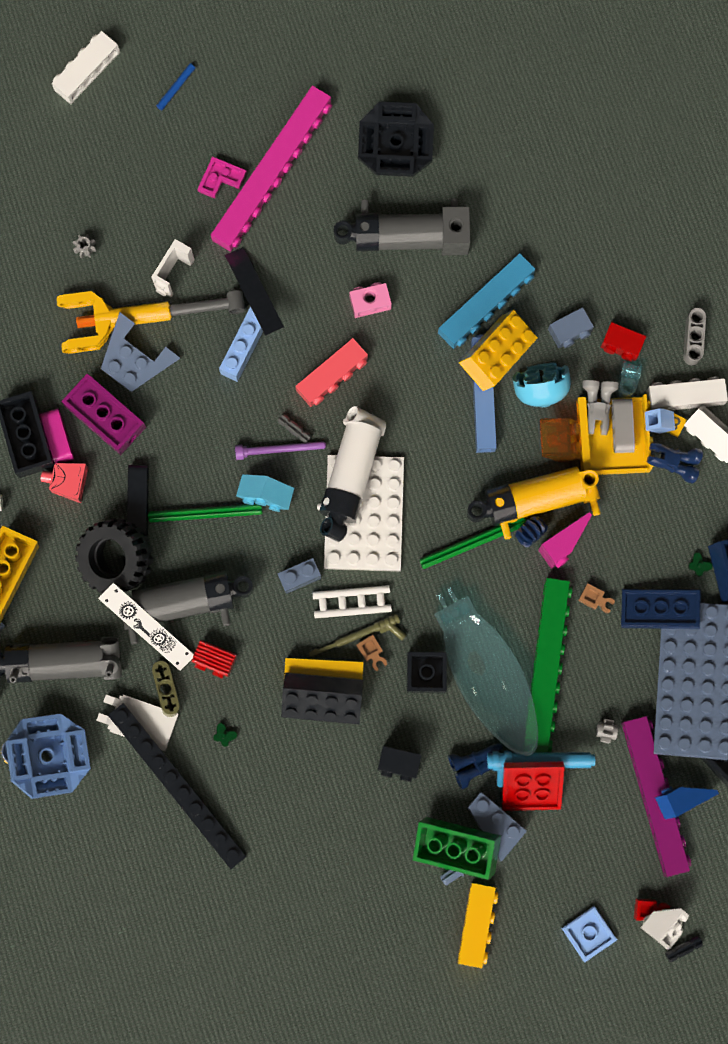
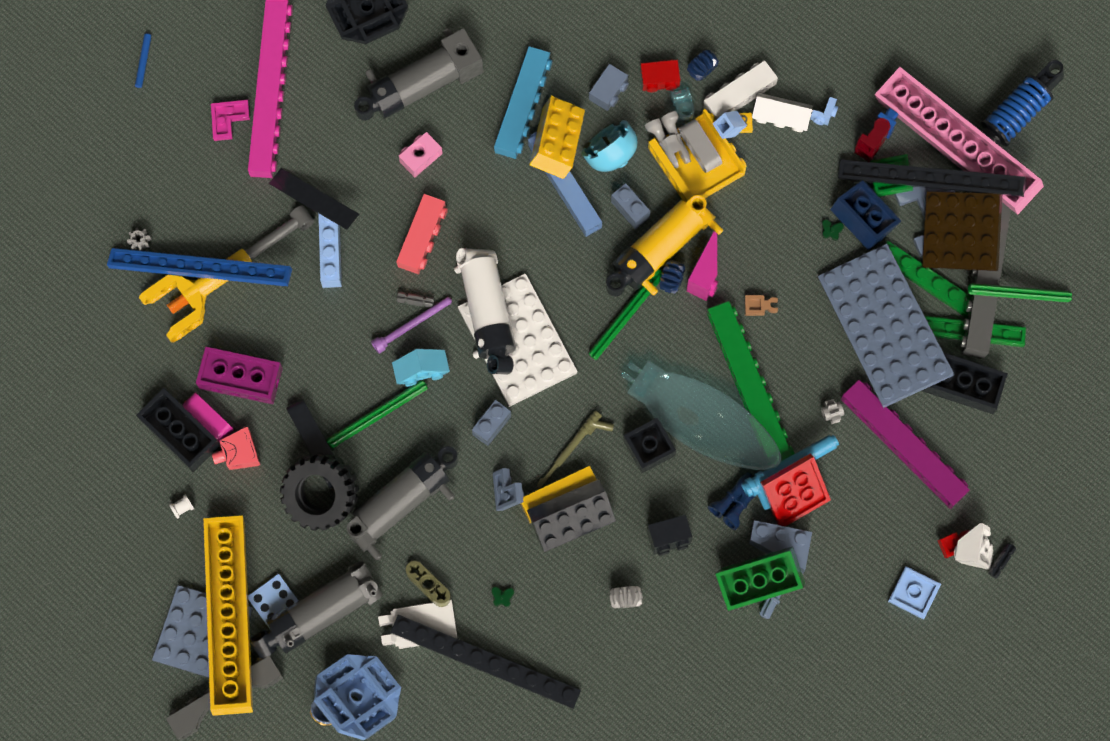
camera: 25 degrees left, 5 degrees down
(26, 627) = (272, 598): none -> light blue tile
(85, 67) = (52, 84): white brick -> none
(122, 299) = (199, 267): none -> blue plate
(129, 364) = (233, 320): sand blue wing -> none
(146, 626) = (382, 536): white sticker -> none
(176, 251) = (228, 200): white panel -> none
(214, 659) = (456, 534): red brick -> none
(276, 647) = (506, 494): none -> sand blue plate
(330, 797) = (626, 597): none -> light grey gear
(360, 593) = (552, 409): white bar -> none
(370, 650) = (589, 453): medium nougat plate -> none
(476, 925) = (814, 637): yellow brick -> none
(530, 447) = (630, 206): none -> sand blue brick
(560, 439) = (653, 185): clear orange slope -> none
(661, 608) = (820, 283): dark blue tile -> none
(666, 353) = (702, 65): none -> dark blue gear
(671, 458) = (758, 153): dark blue piece -> none
(680, 800) = (928, 432): blue slope -> none
(699, 329) = (715, 31): light grey beam -> none

